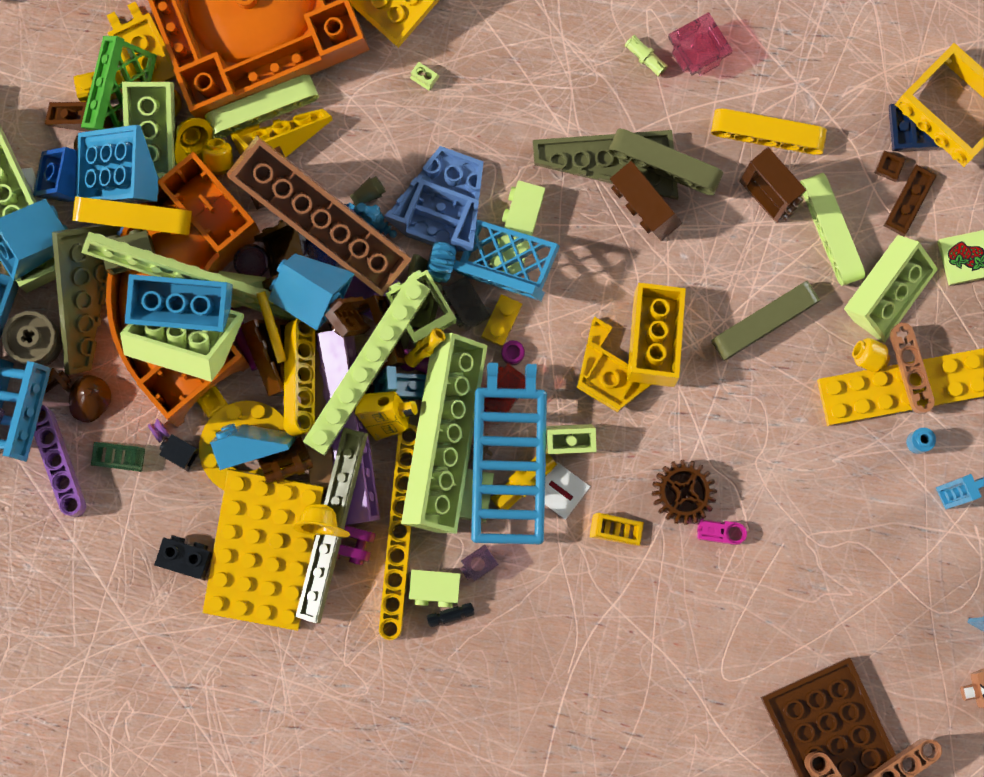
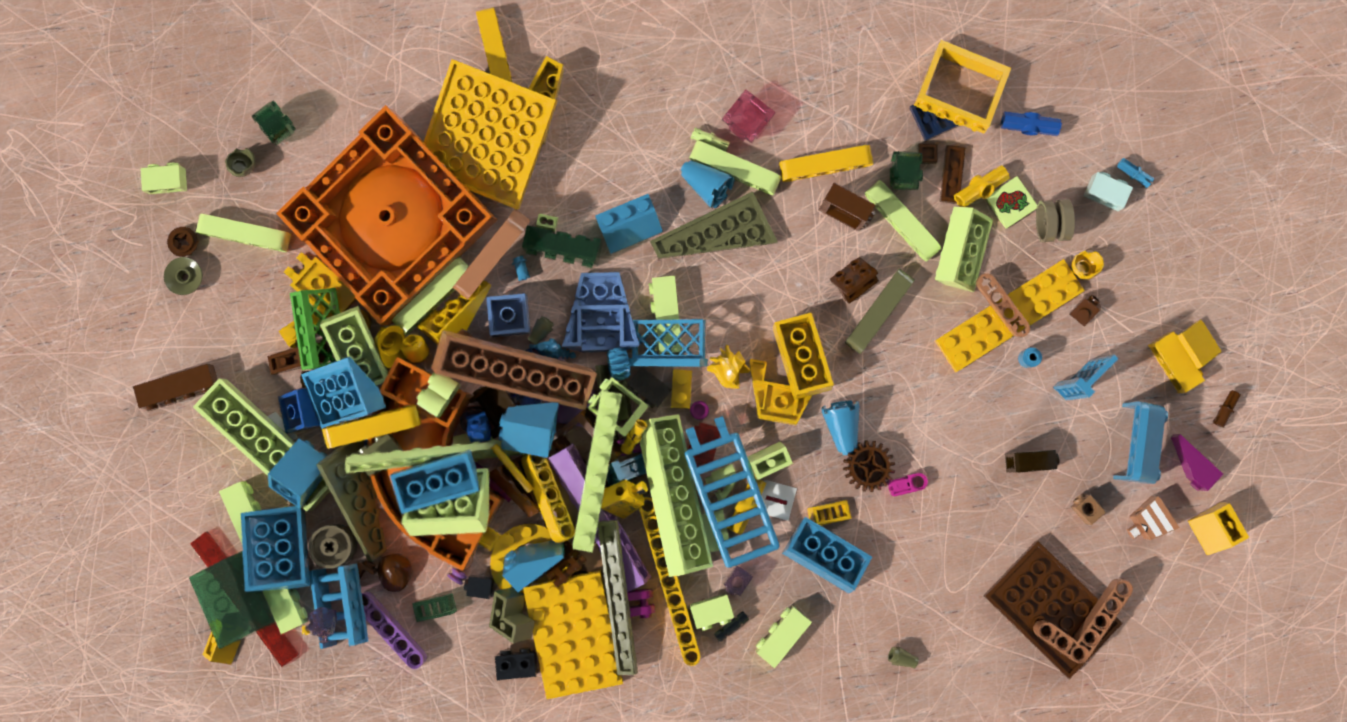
camera: 20 degrees left, 5 degrees up
(197, 496) = (508, 616): none -> olive brick
(222, 208) = (438, 394): none -> yellowish green brick
(252, 269) = (478, 428): none -> blue brick
(319, 521) = (607, 599): yellow piece -> none
(338, 159) = (508, 315): none -> medium blue brick
(345, 318) = (567, 440): reddish brown bracket -> none
(374, 114) = (521, 268): none -> dark azure pin
(378, 62) = (491, 254): none -> nougat beam
(431, 108) = (562, 246): none -> clear green wedge
(505, 648) = (782, 636): none -> yellowish green brick
(508, 432) = (720, 474): none -> yellowish green plant
(516, 111) = (629, 223): none -> dark azure slope
(565, 315) = (728, 367): none -> yellow hair
(594, 575) = (827, 555): none -> dark azure slope
(625, 100) = (707, 182): none -> dark azure cone
(636, 731) = (900, 657): none -> olive cone
(644, 201) = (754, 256): reddish brown wedge -> none
(662, 97) = (737, 167): none -> yellowish green beam
(665, 161) = (758, 219): olive beam -> none
(672, 433) = (843, 424): none -> dark azure cone
(751, 274) = (855, 279): none -> reddish brown bracket
(857, 172) = (906, 170): none -> clear green brick
(871, 355) = (968, 306): yellow head -> none
(877, 560) = (1031, 461): none -> dark brown slope
(930, 651) = (1095, 512): none -> medium nougat brick
(939, 225) = (981, 186): none -> yellow piece

